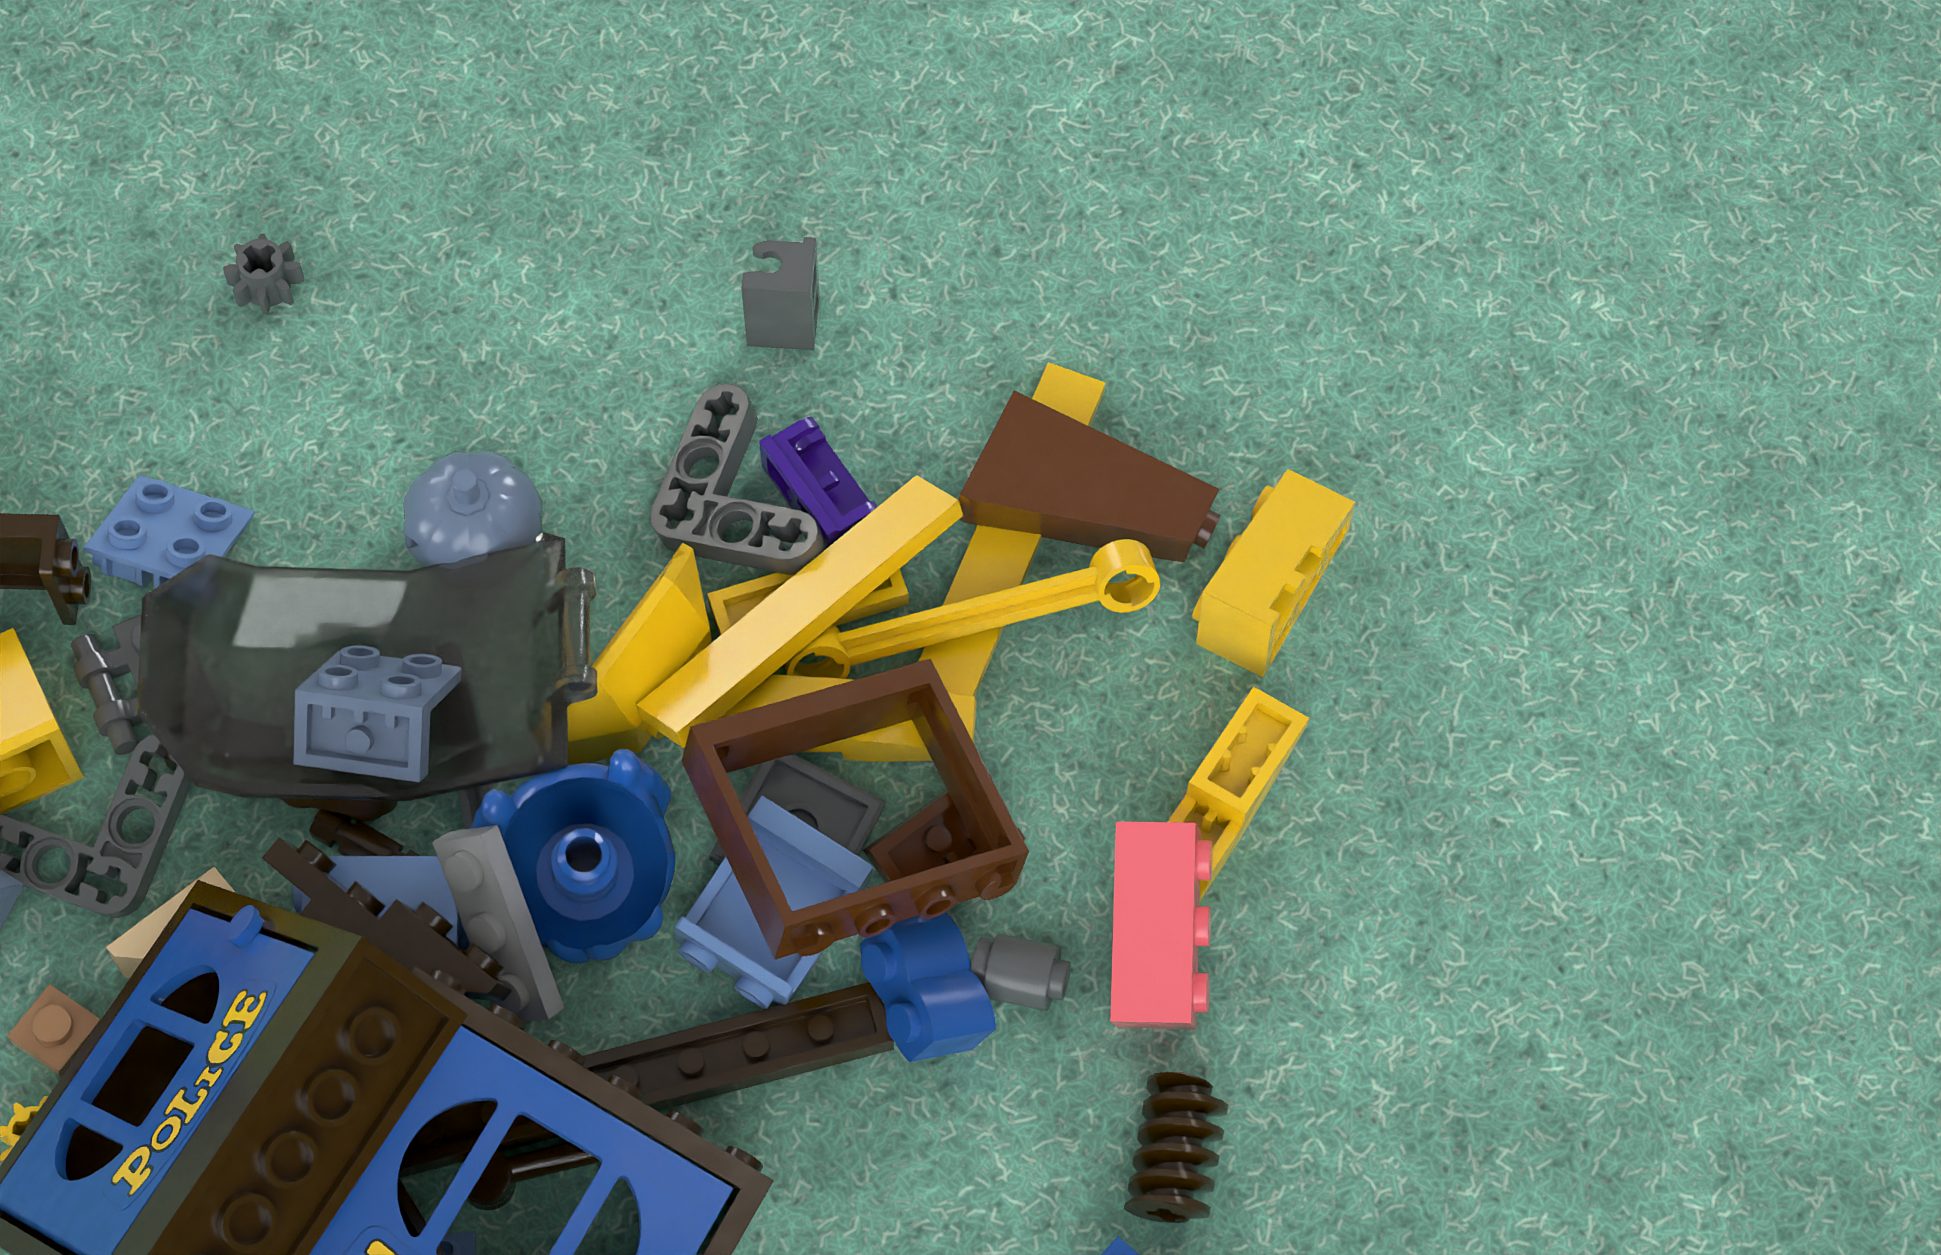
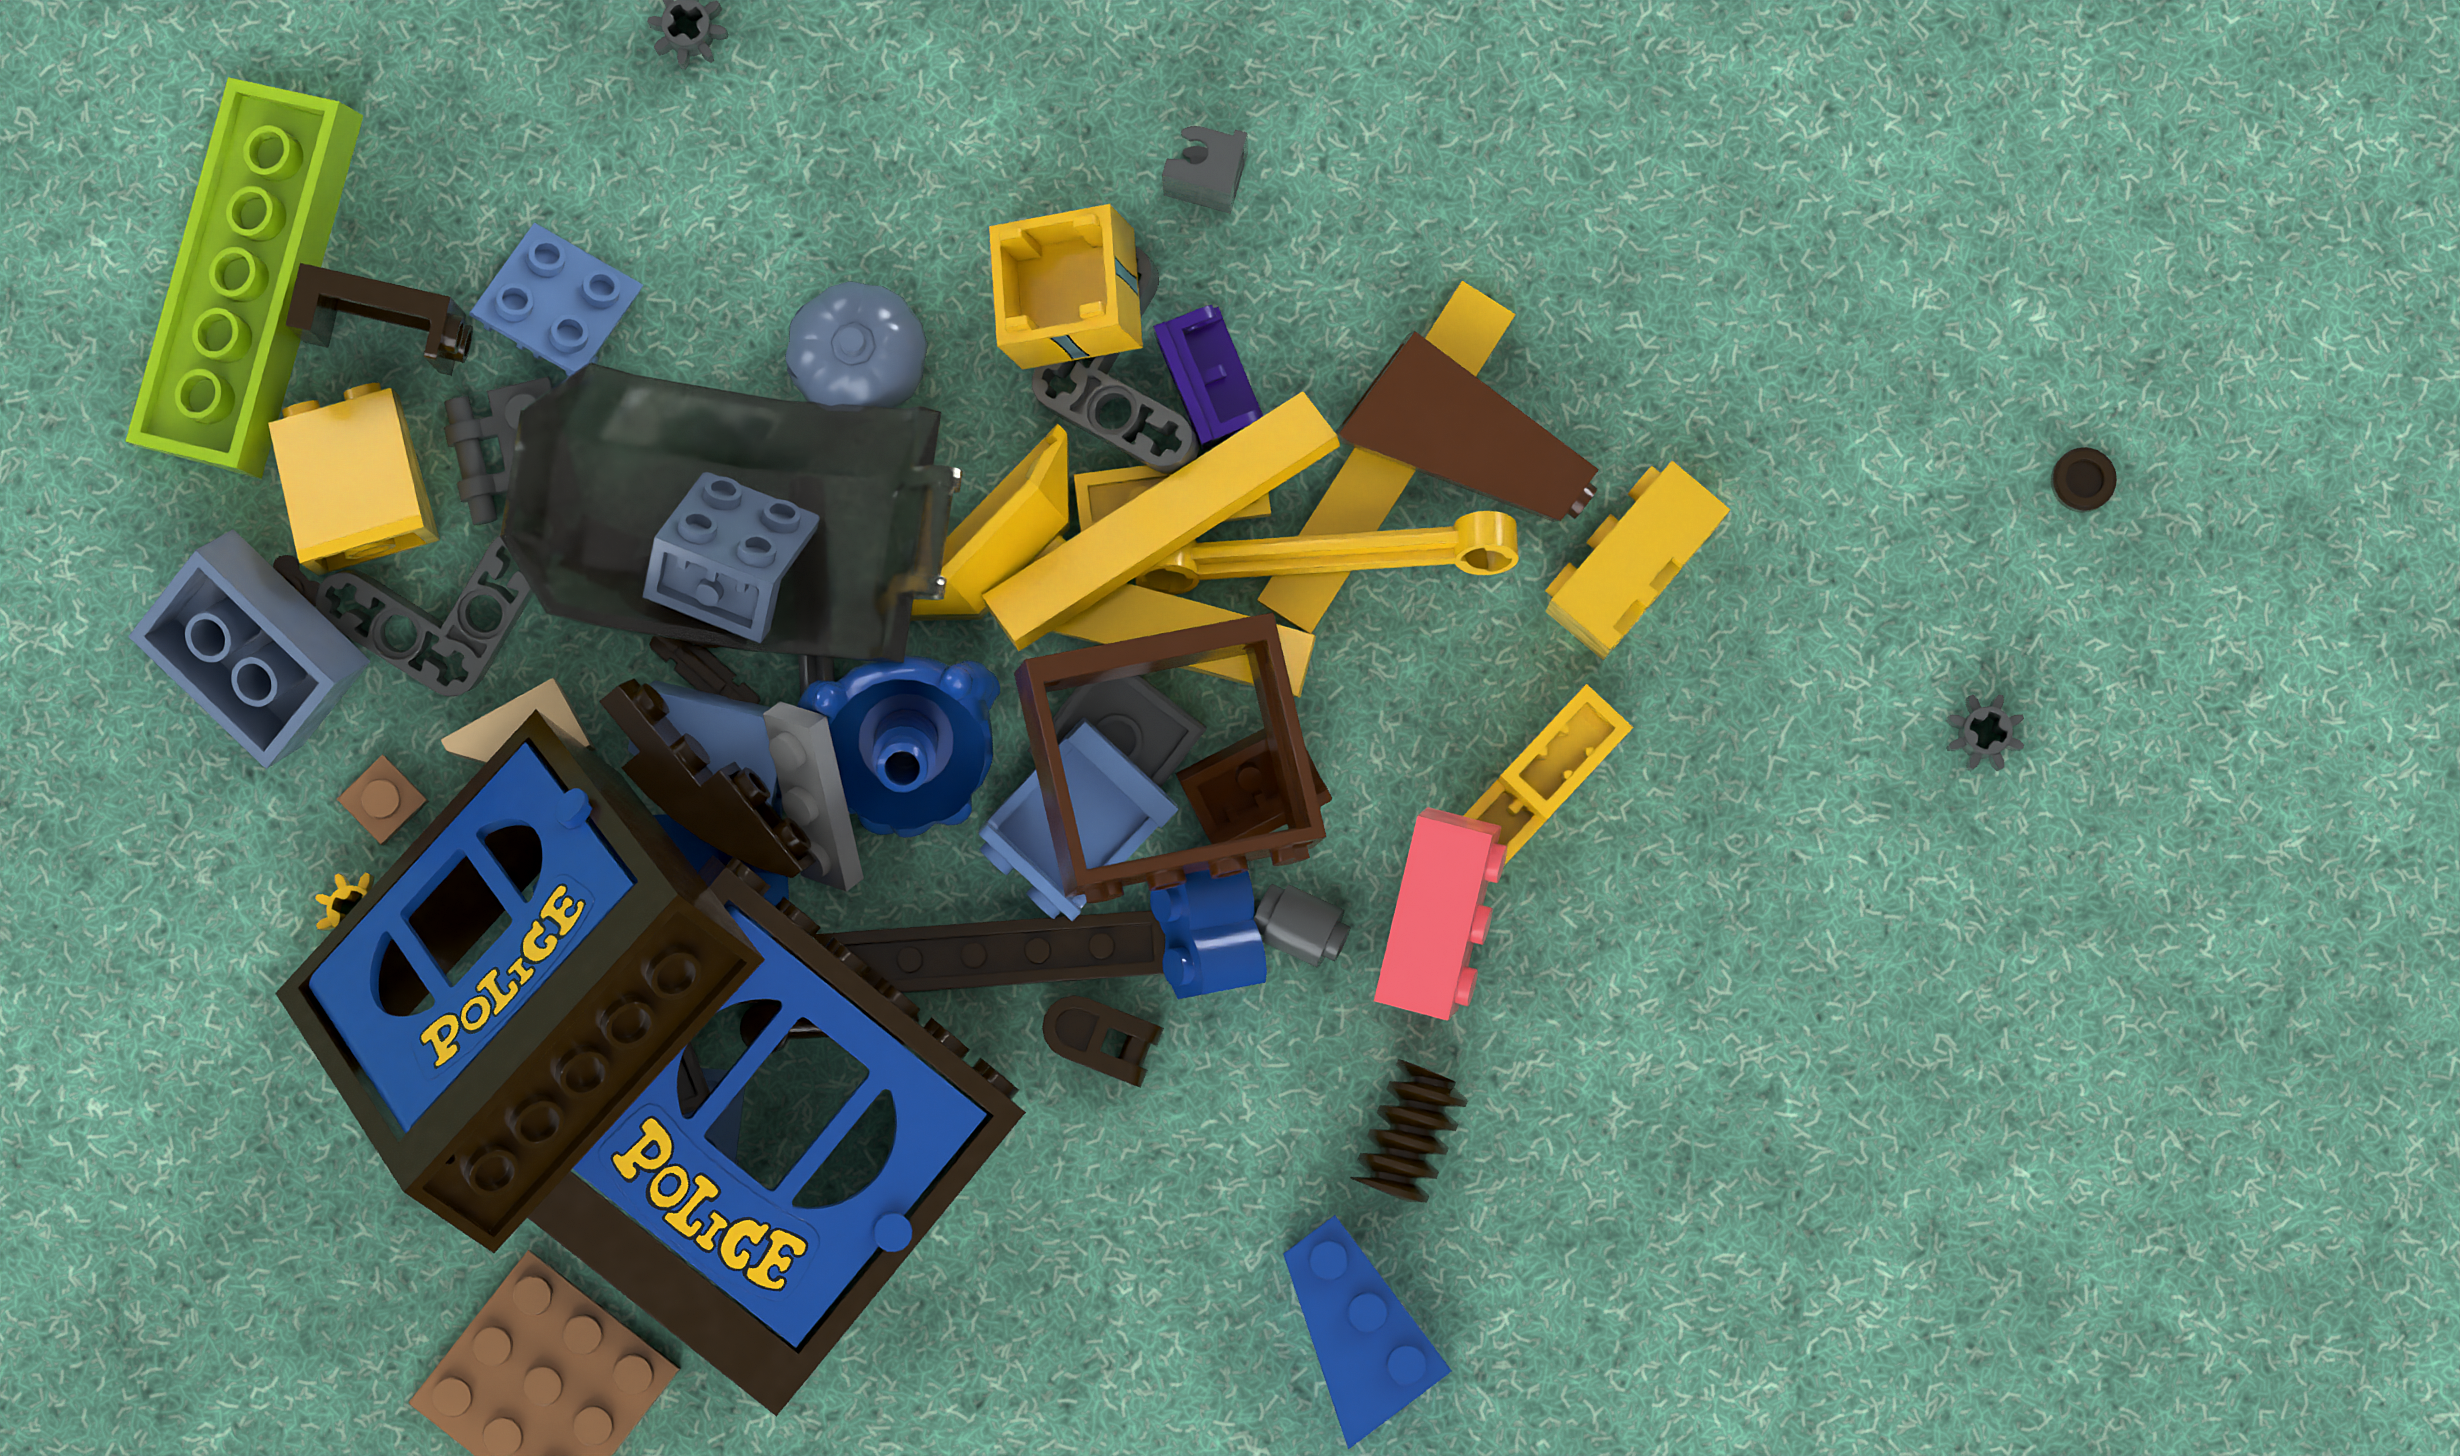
camera: 15 degrees right, 20 degrees up
(667, 420) = (1065, 287): none -> yellow container
(812, 1117) = (1077, 1029): none -> dark brown plate
(1645, 681) = (2002, 726): none -> dark grey gear
(1682, 432) = (2083, 479): none -> dark brown tile

